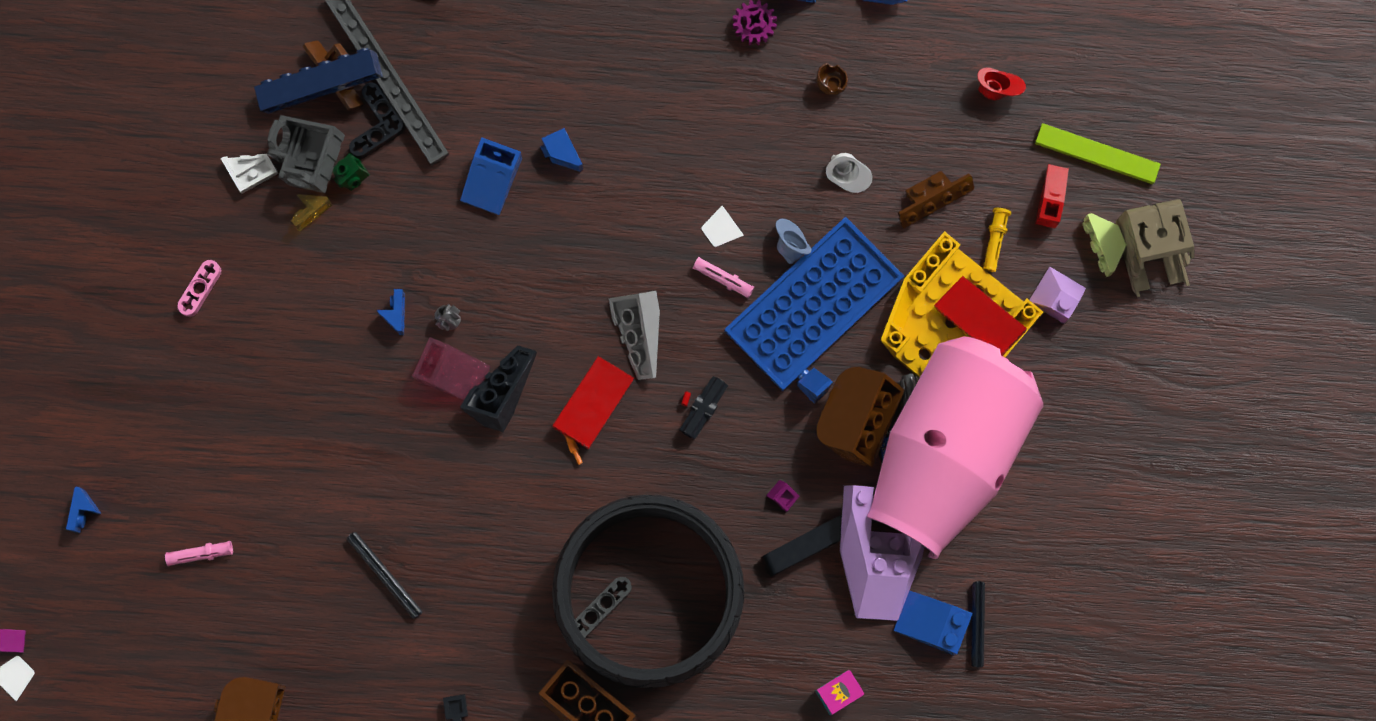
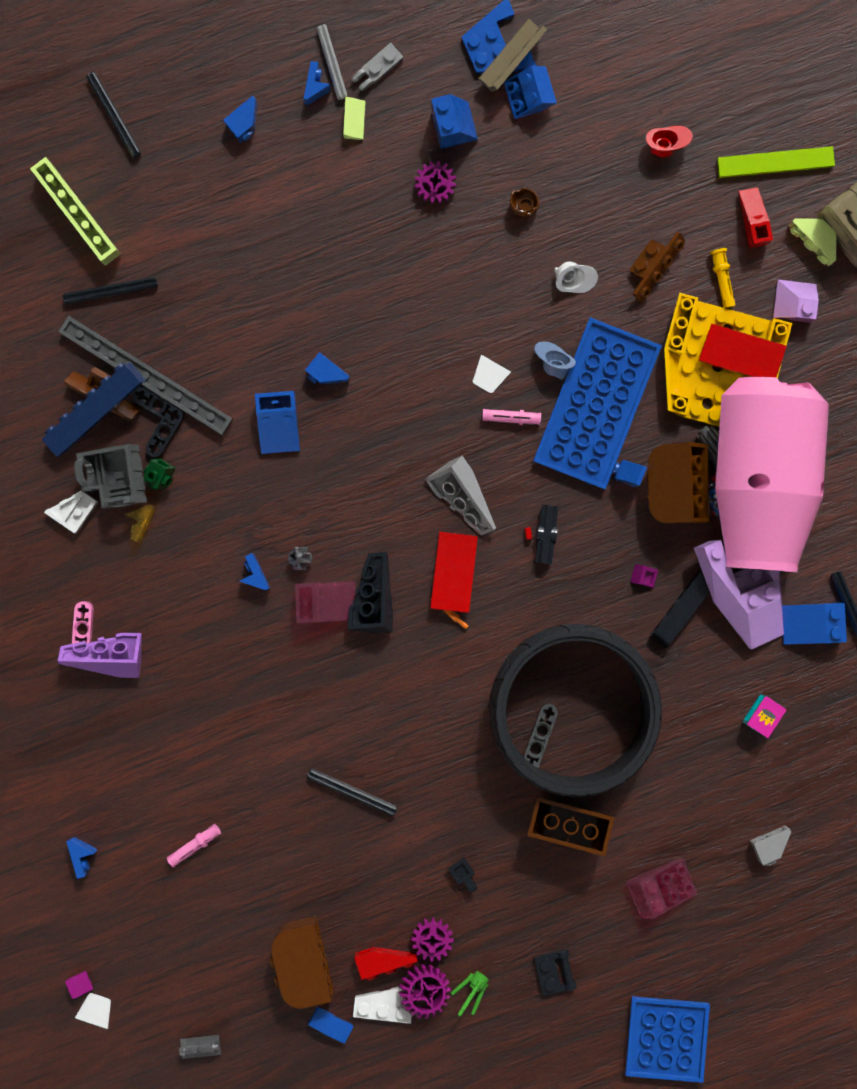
camera: 20 degrees left, 10 degrees up
(215, 328) = (111, 656): none -> medium lavender wedge

